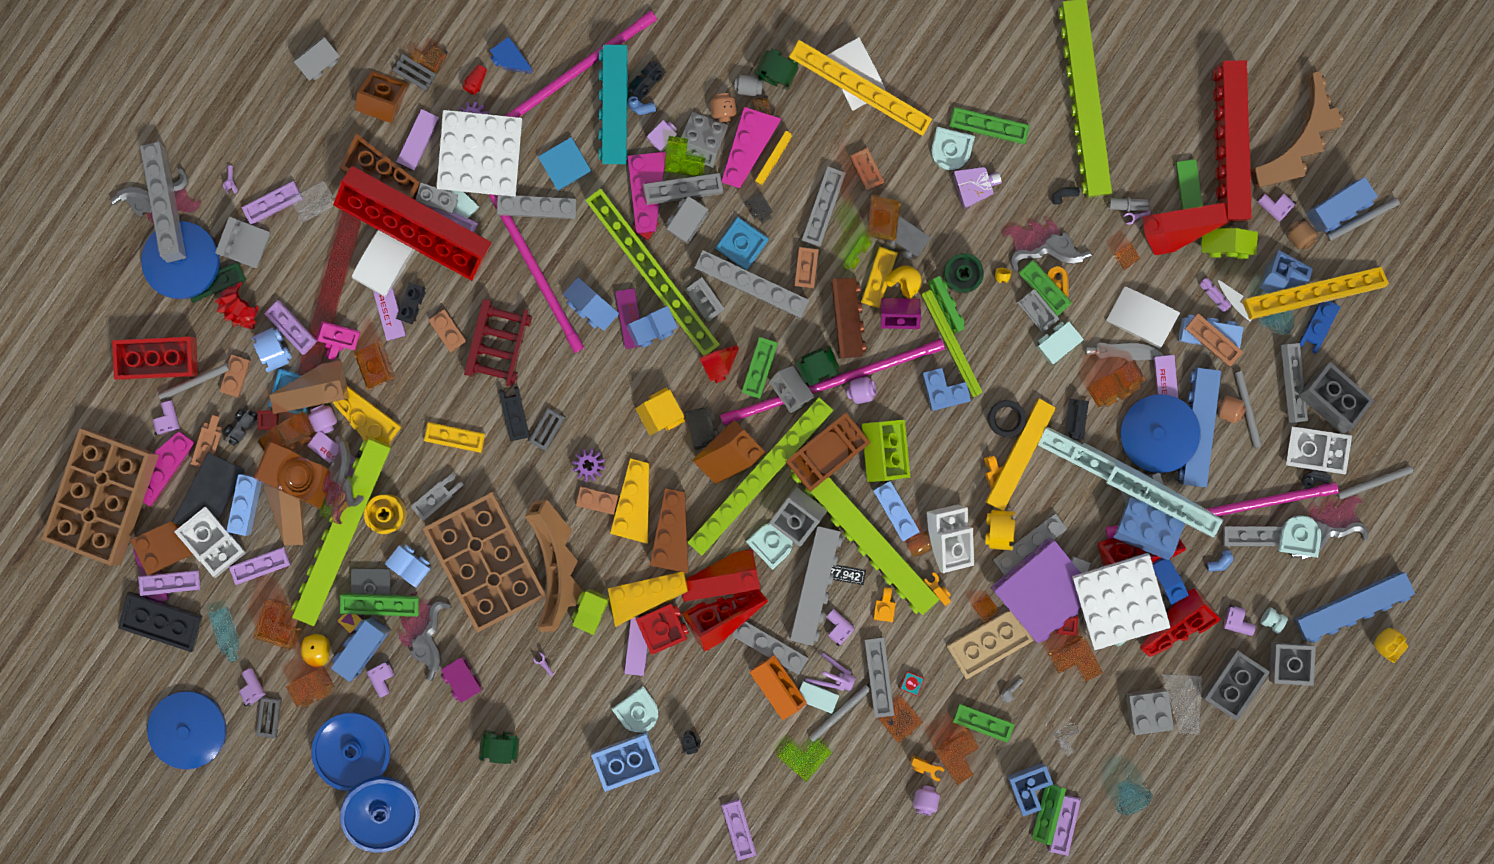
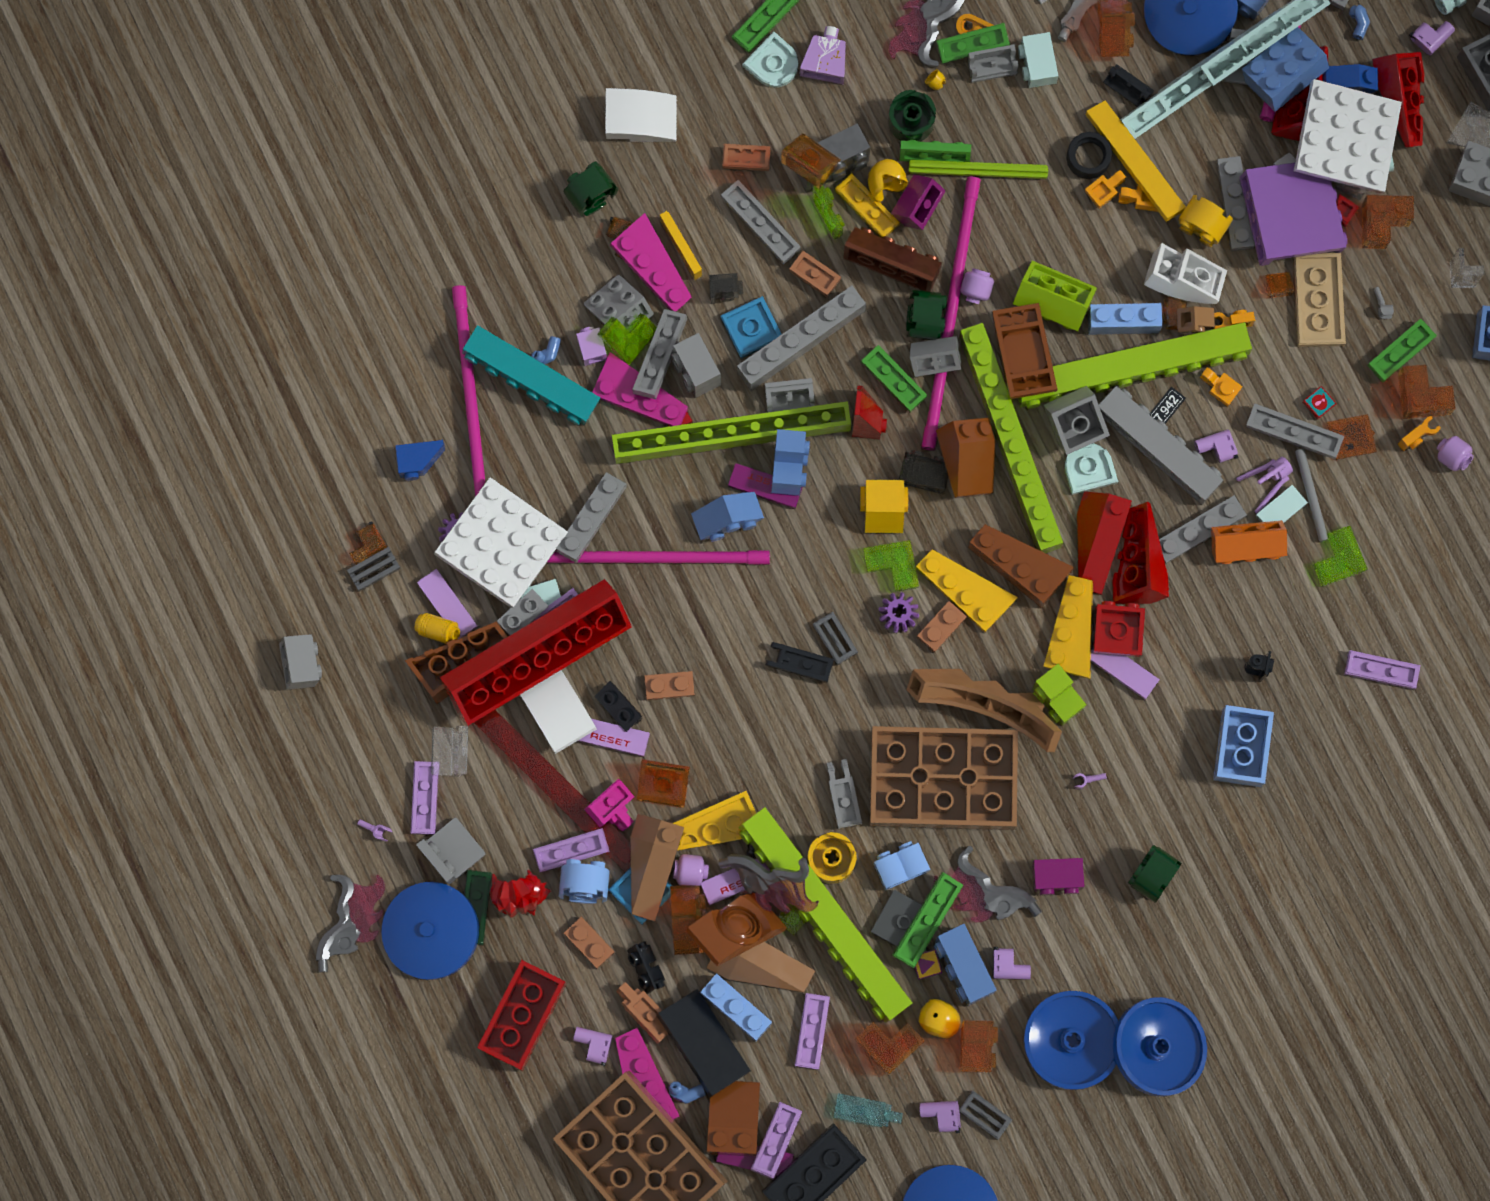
camera: 60 degrees left, 10 degrees down
(163, 202) = (359, 908): light grey brick -> none
(166, 501) = (685, 1094): none -> medium blue arm
(194, 381) = (570, 989): light grey bar -> none
(210, 542) = (757, 1067): white slope -> none
(267, 420) = (657, 934): red tile -> none
(380, 96) = (379, 617): dark orange slope -> none
(394, 142) = (436, 628): none -> yellow head
(454, 437) = (788, 741): yellow tile -> none
(474, 80) = (419, 509): red cone -> none
(483, 329) = (708, 660): dark red fence -> none
(564, 164) = (562, 464): dark azure tile -> none
(628, 443) = (896, 557): none -> clear neon green plate
(637, 711) = (1195, 708): light aqua tile -> none
(641, 87) = (519, 321): black hinge -> none
(723, 107) = (597, 267): nougat head -> none
(748, 85) = (589, 229): light grey brick -> none
(860, 87) = (658, 115): yellow plate -> none
(921, 562) = (1195, 319): none -> medium nougat brick
(939, 394) = (1023, 208): medium blue brick -> none
(985, 443) = (1104, 190): none -> light orange plate

